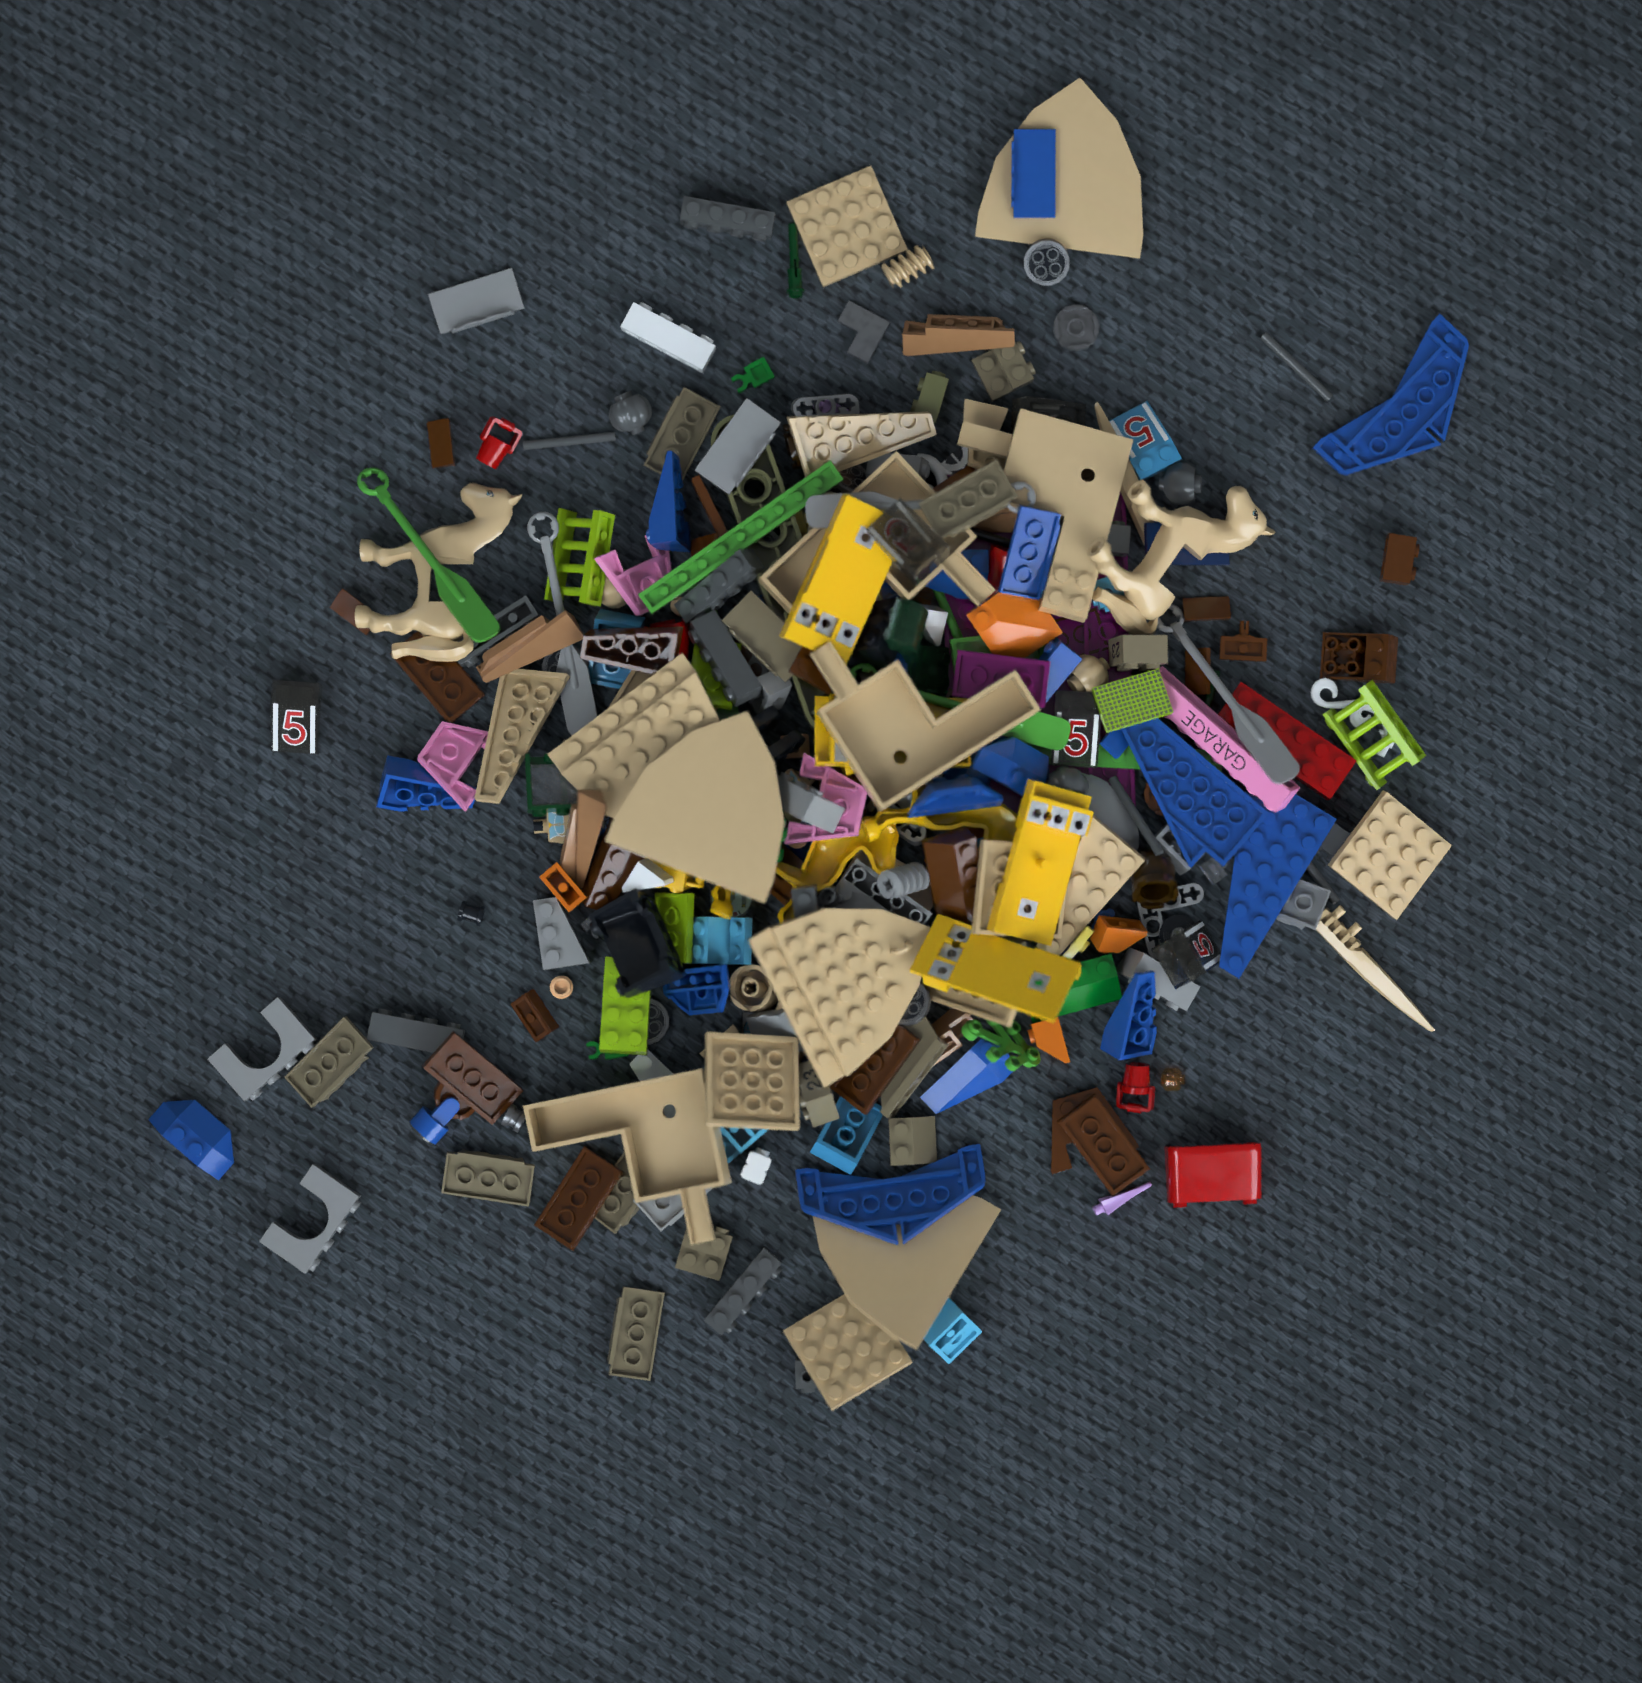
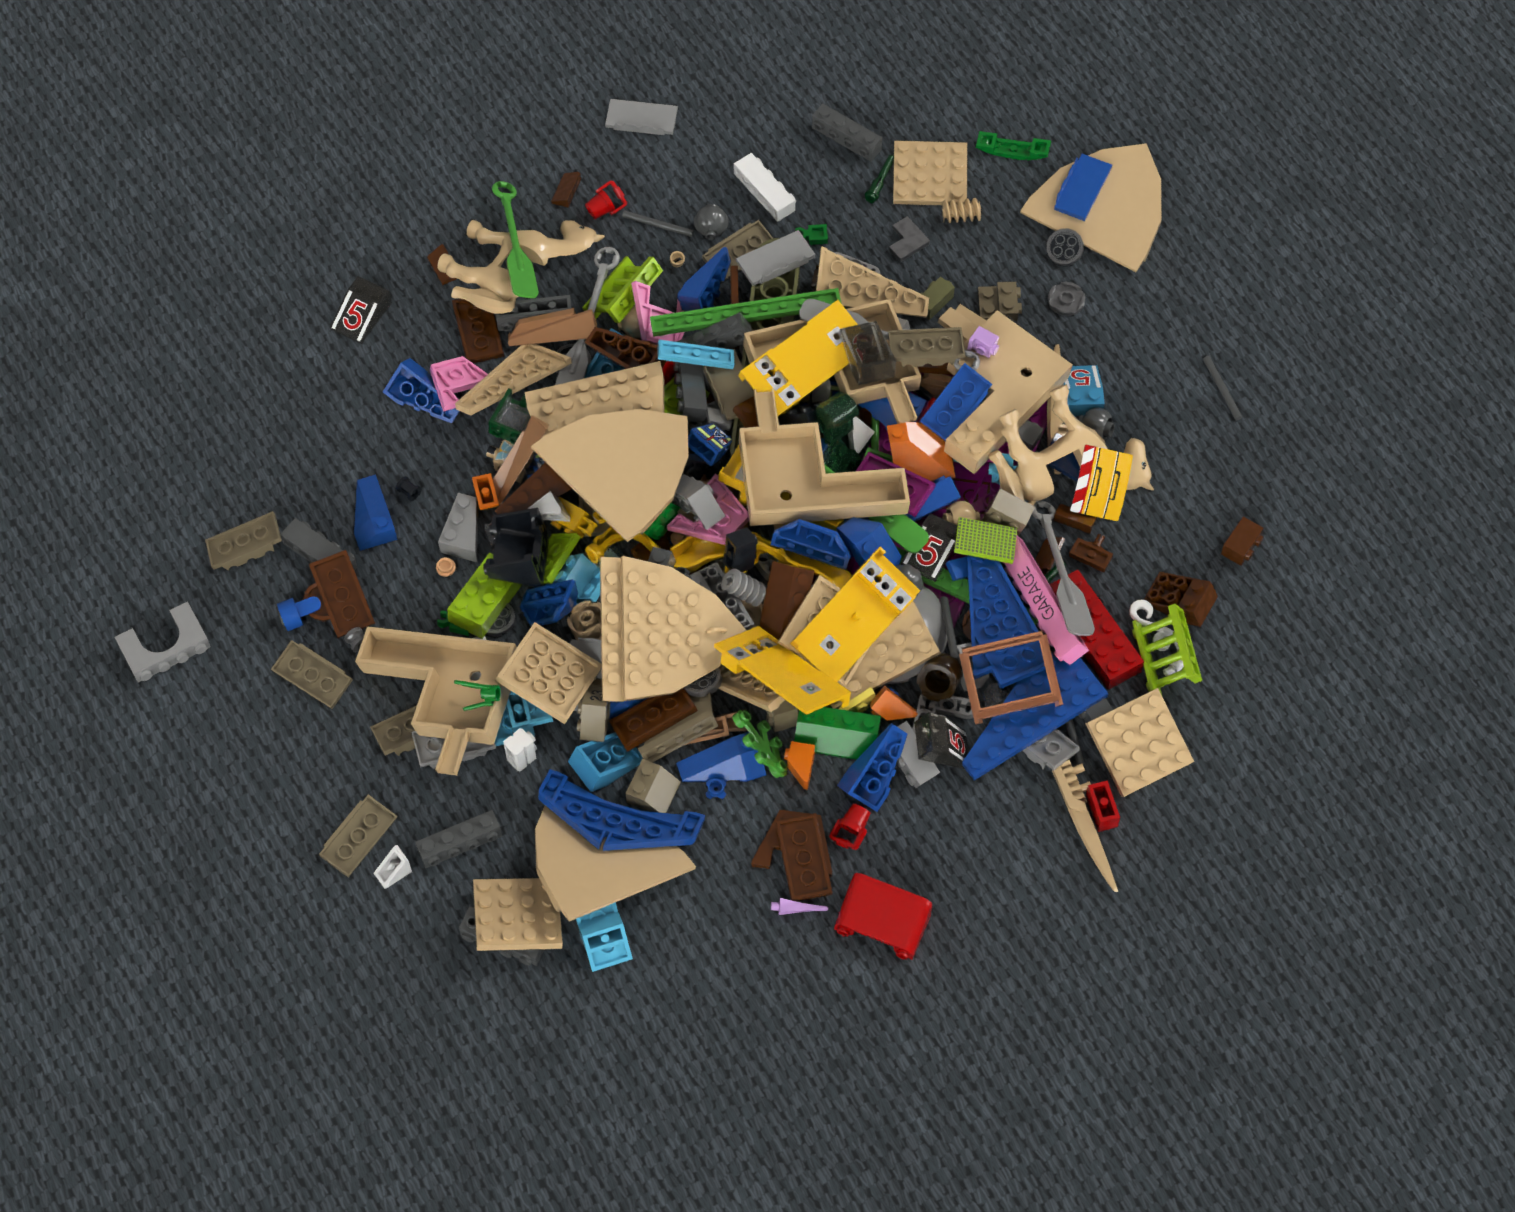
camera: 25 degrees right, 25 degrees down
(196, 1135) = (117, 551): blue wedge -> none
(294, 1039) = (180, 530): light grey arch -> none
(448, 963) = (372, 516): none -> blue wedge
(534, 1015) = (414, 578): reddish brown slope -> none
(578, 1198) = (371, 718): reddish brown tile -> none
(620, 484) = (675, 256): none -> tan hinge
(691, 1353) = (393, 868): none -> white slope
(705, 1257) = (446, 798): dark tan plate -> none
(707, 1141) = (488, 692): none -> green plant
(716, 625) = (695, 354): none -> medium azure tile
(783, 721) = (709, 442): none -> blue torso
(883, 846) = (740, 550): none -> black brick
(927, 148) = (1013, 149): none -> green slope
(955, 334) = (973, 264): medium nougat wedge -> none
(976, 1101) = (715, 783): none -> blue plate
(1029, 465) = (984, 342): none -> lavender brick
(1172, 1079) = (884, 838): clear orange piece -> none
(1222, 562) = (1102, 483): none -> yellow sticker
(1254, 885) = (1017, 705): none -> nougat piece
(1381, 945) = (1102, 806): none -> red brick
(1400, 423) = (1289, 455): blue wing -> none

